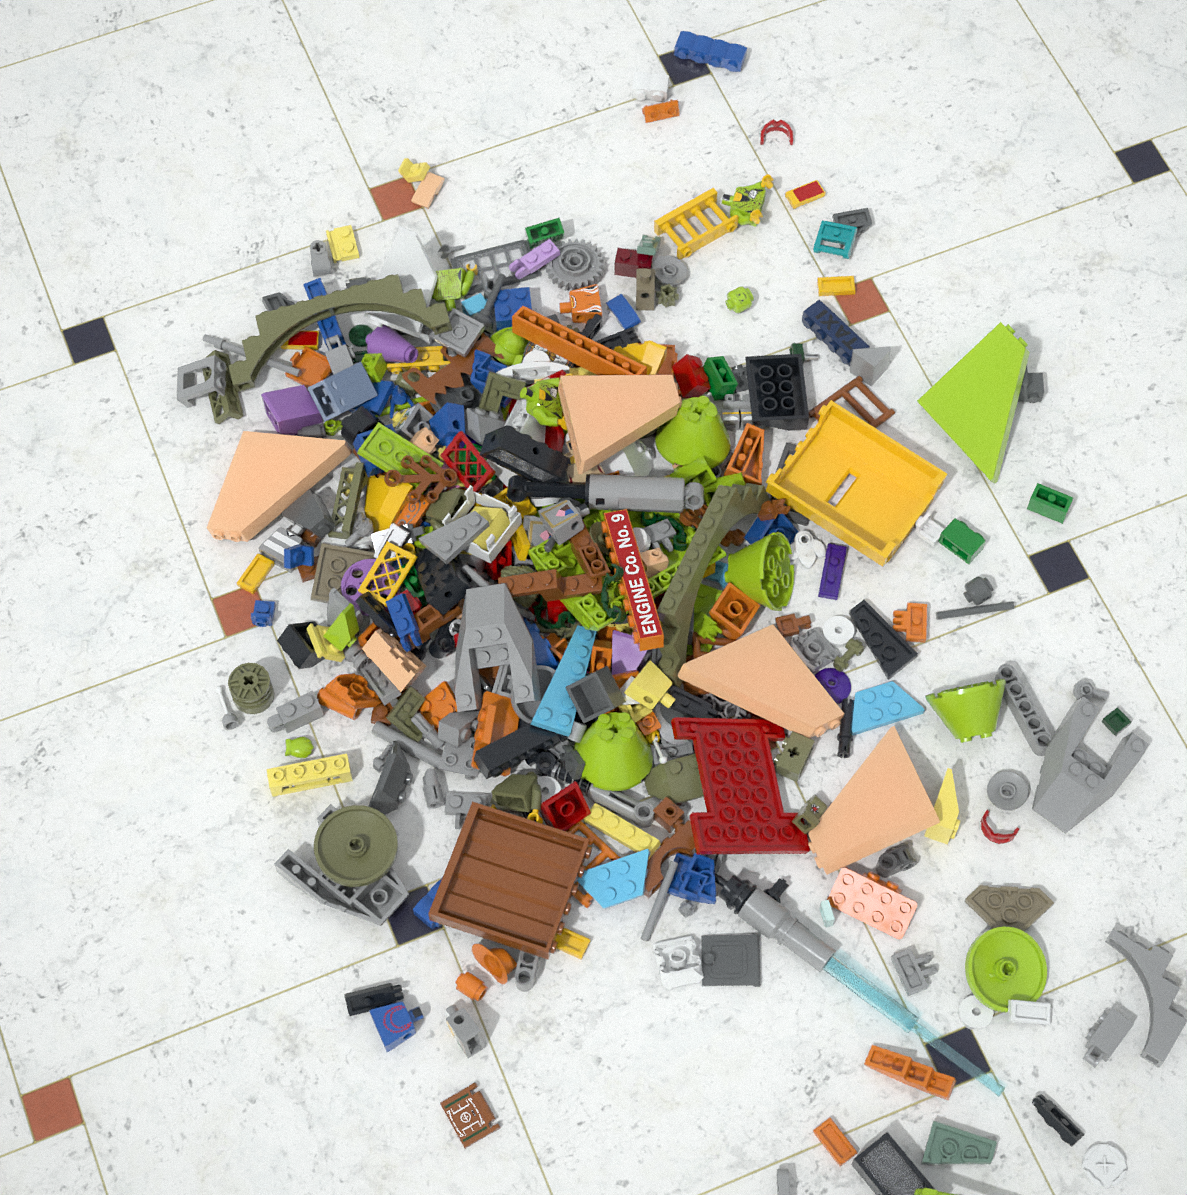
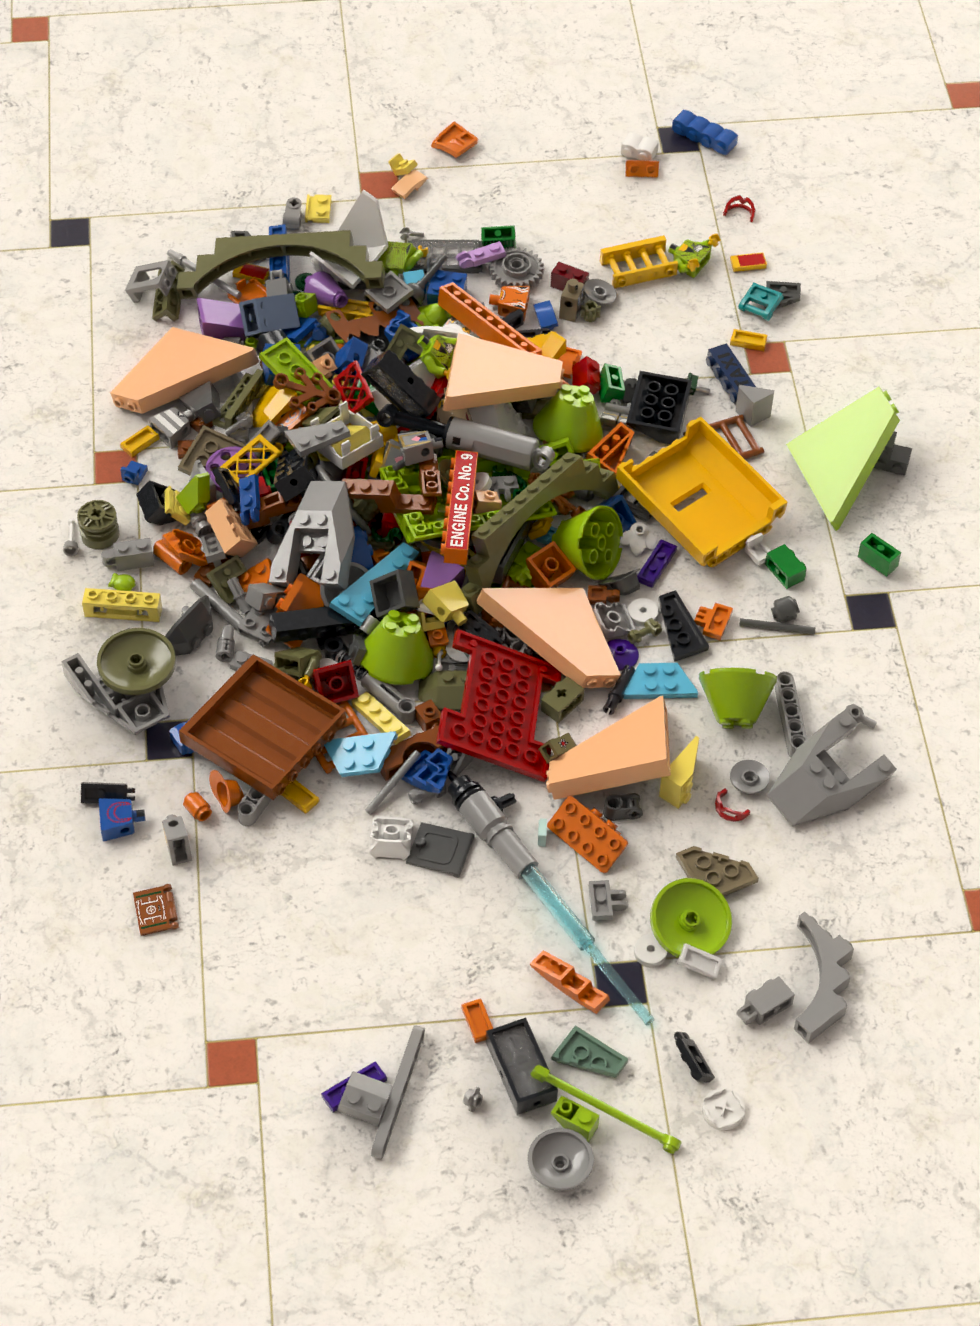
camera: 15 degrees right, 10 degrees down
(298, 555) = (179, 432): blue bracket -> none
(456, 125) = (454, 140): none -> orange plate
(612, 613) = (435, 528): dark green piece -> none
(649, 245) = (588, 266): sand green plate -> none
(739, 299) = (654, 328): lime head -> none
(772, 508) = (615, 493): dark orange plate -> none
(807, 604) = (626, 583): none -> dark grey piece
(1116, 721) = (875, 747): dark green plate -> none

